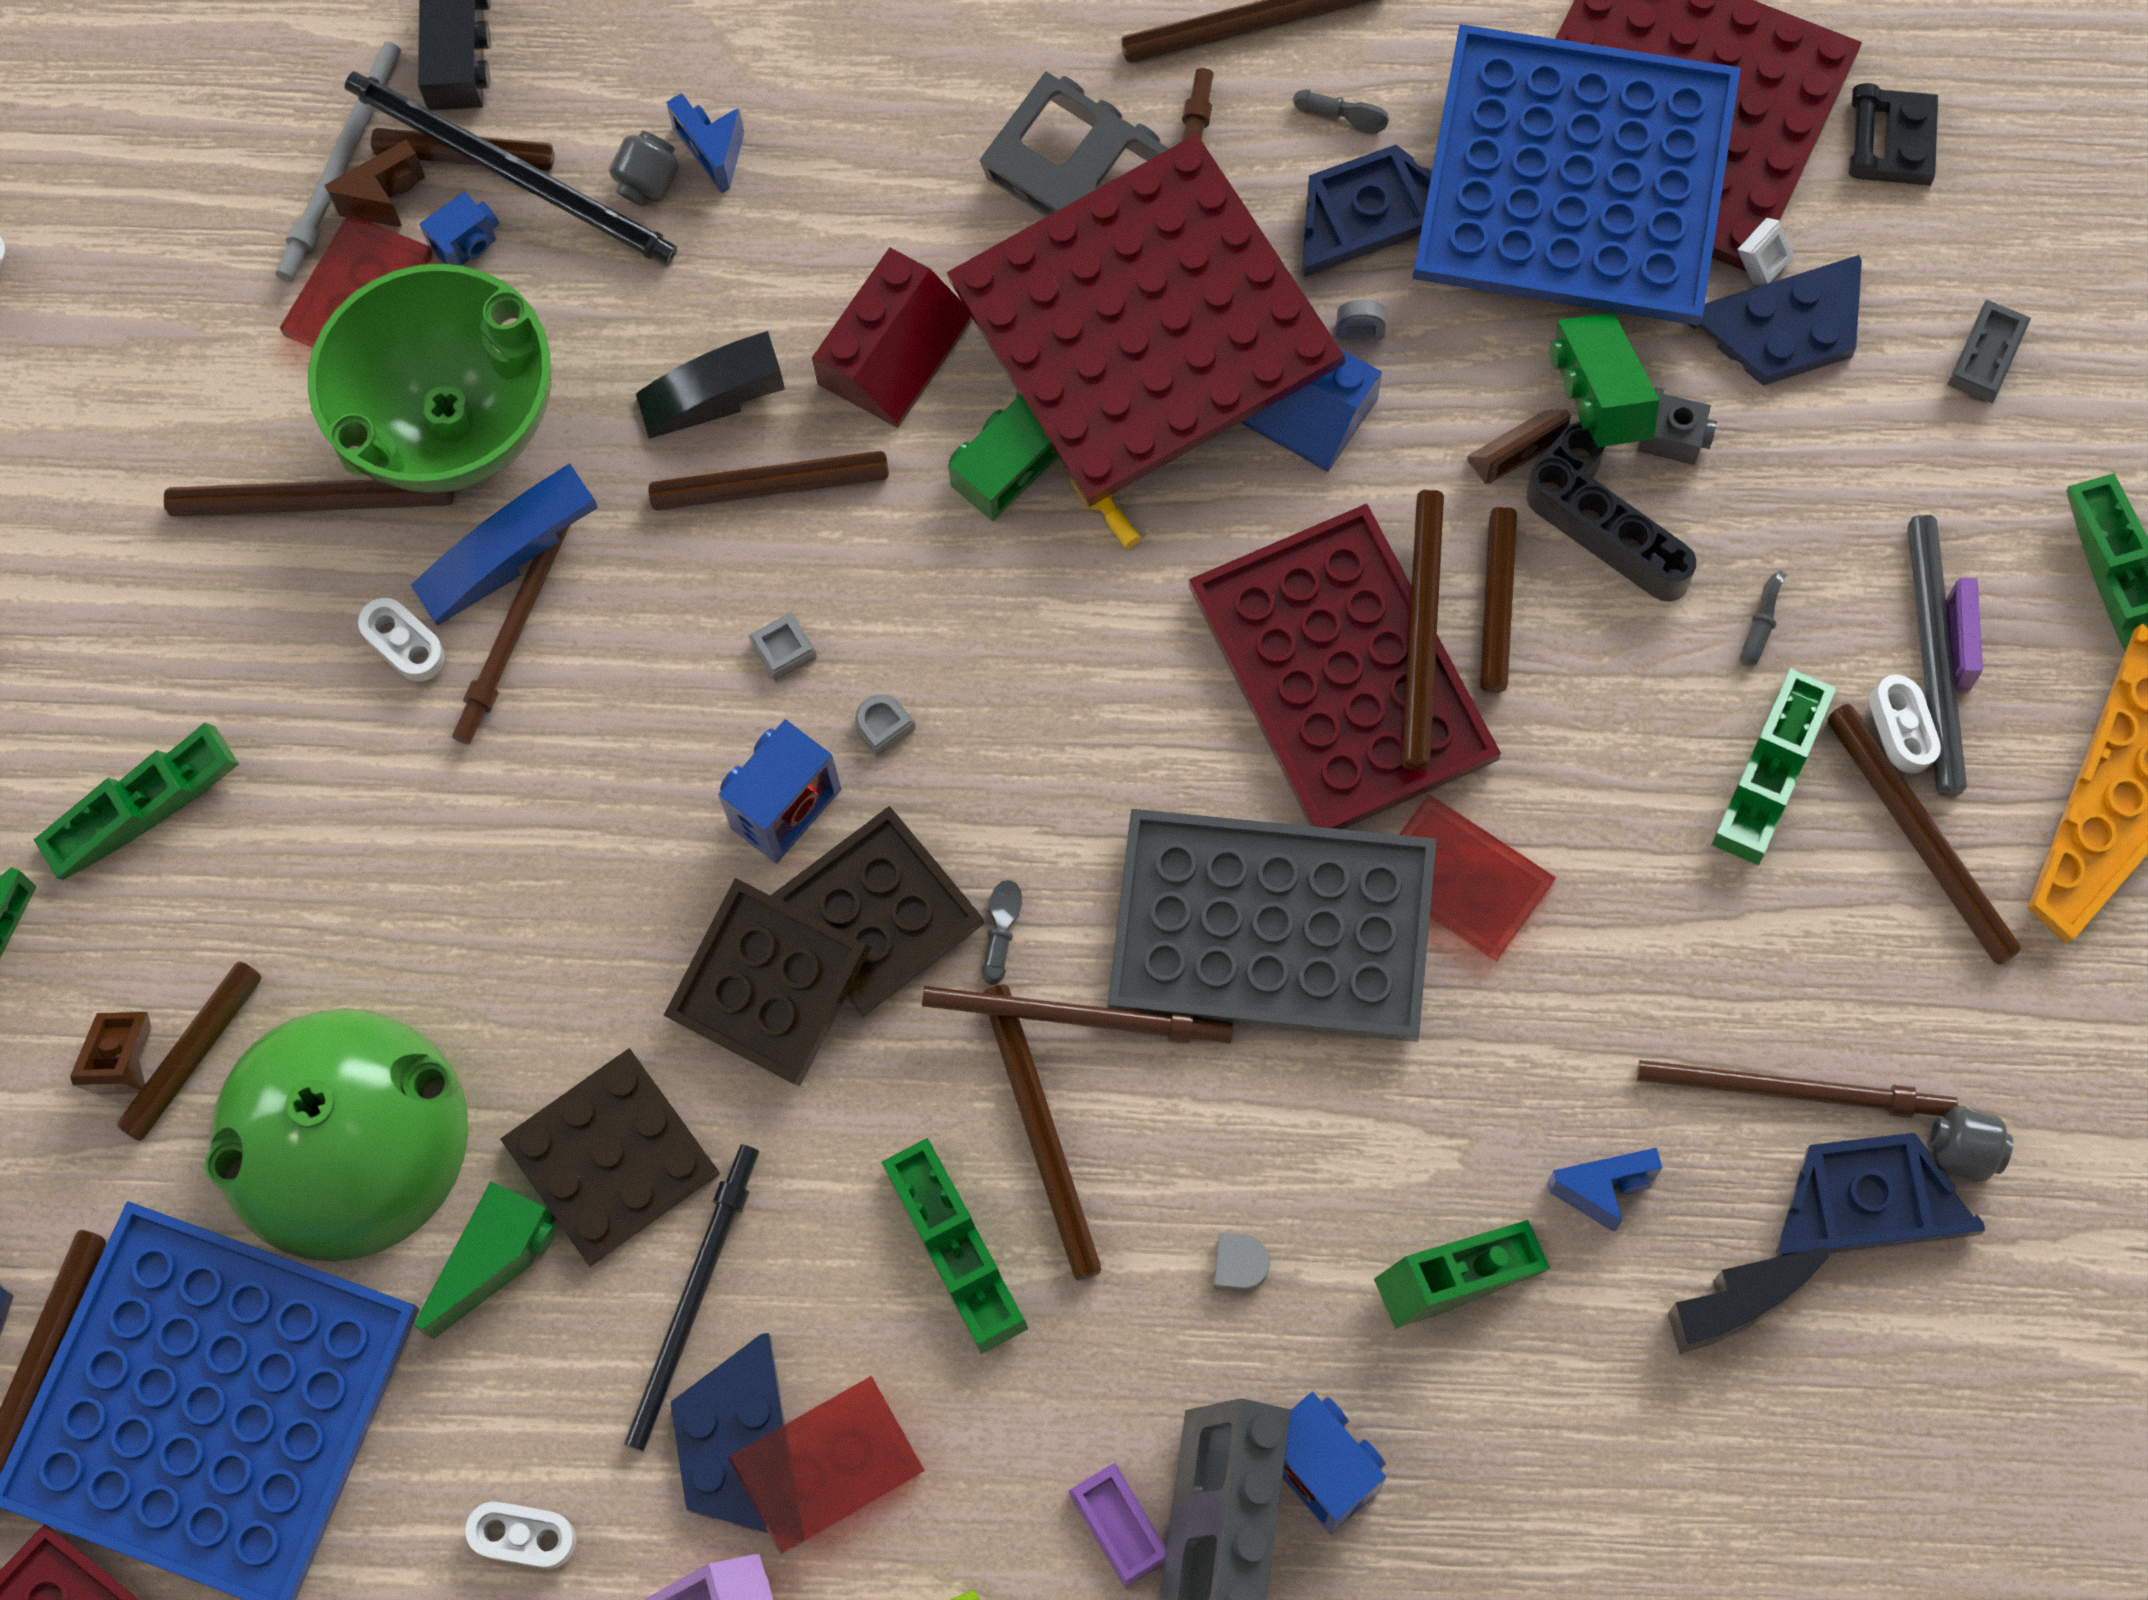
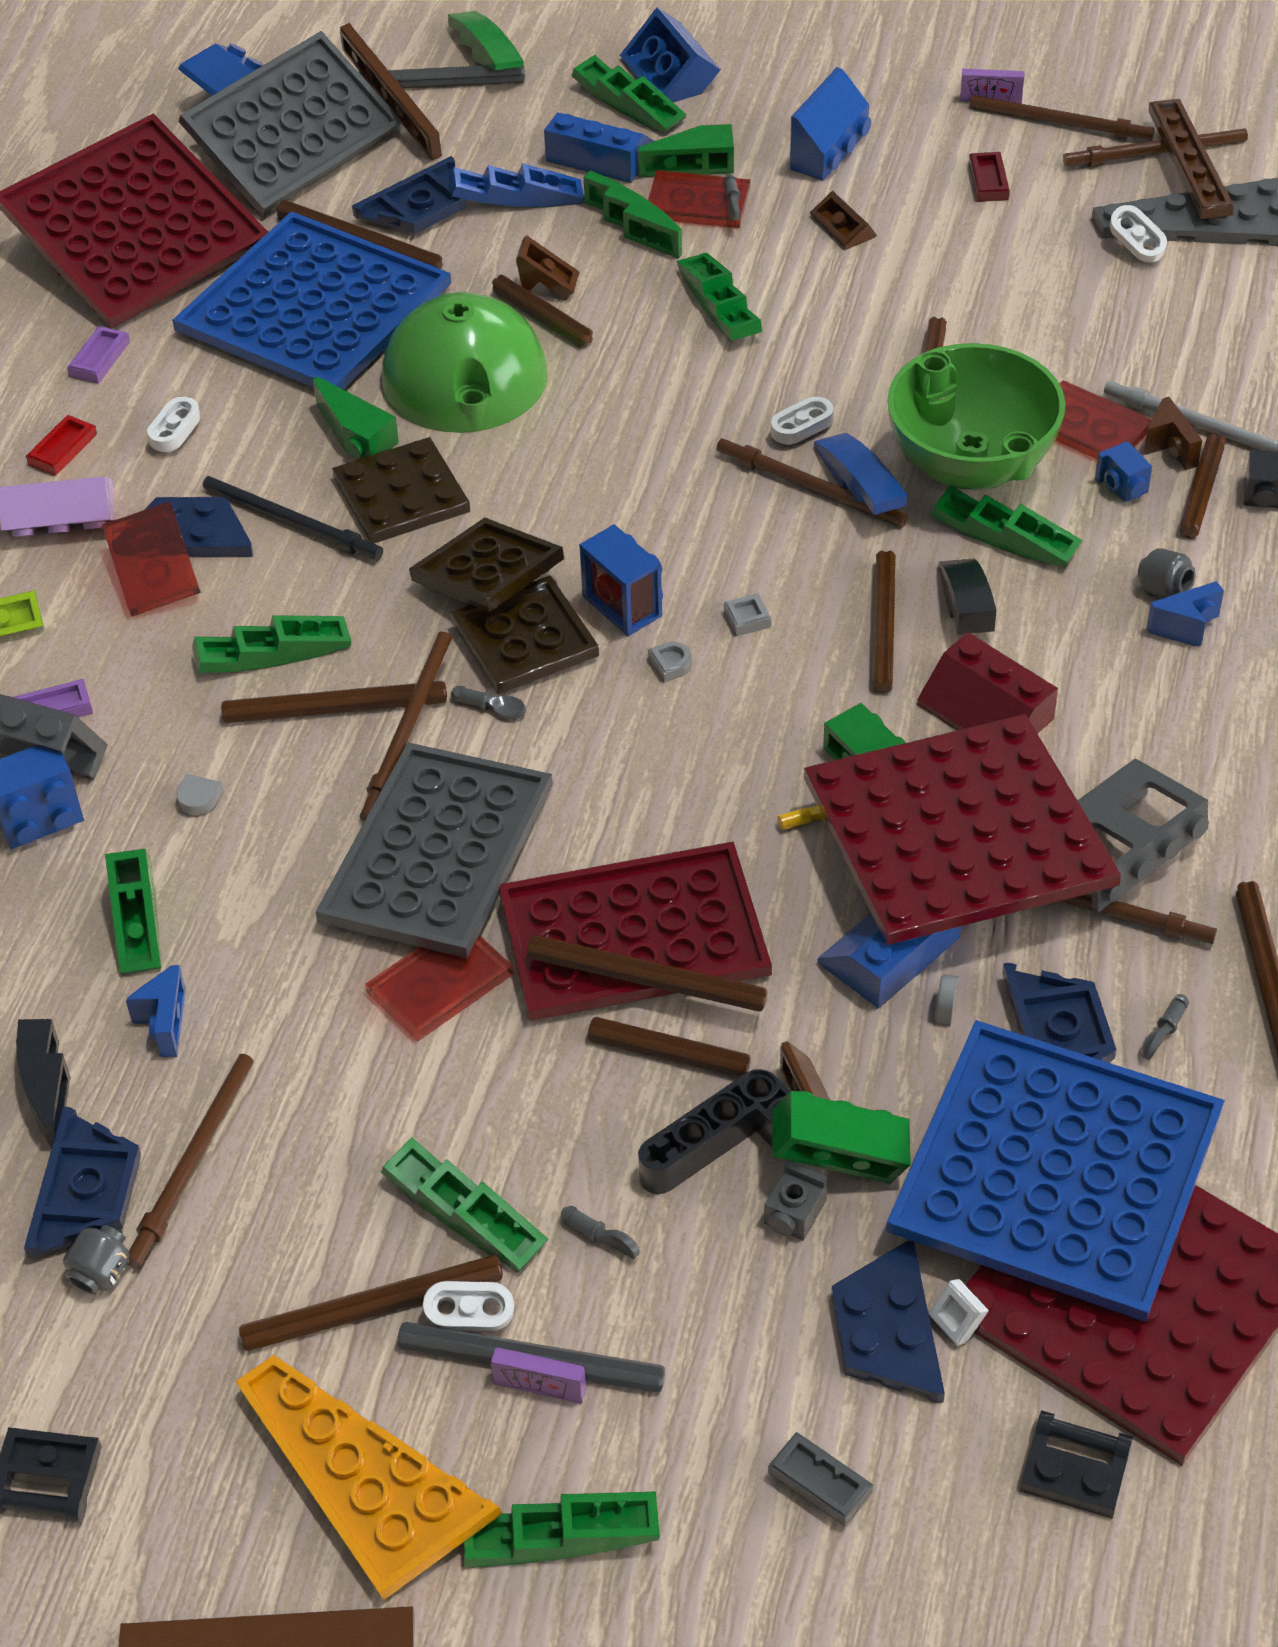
camera: 100 degrees right, 20 degrees down
(511, 167) = (1172, 501): black piece -> none
(582, 355) = (999, 526): none -> green slope

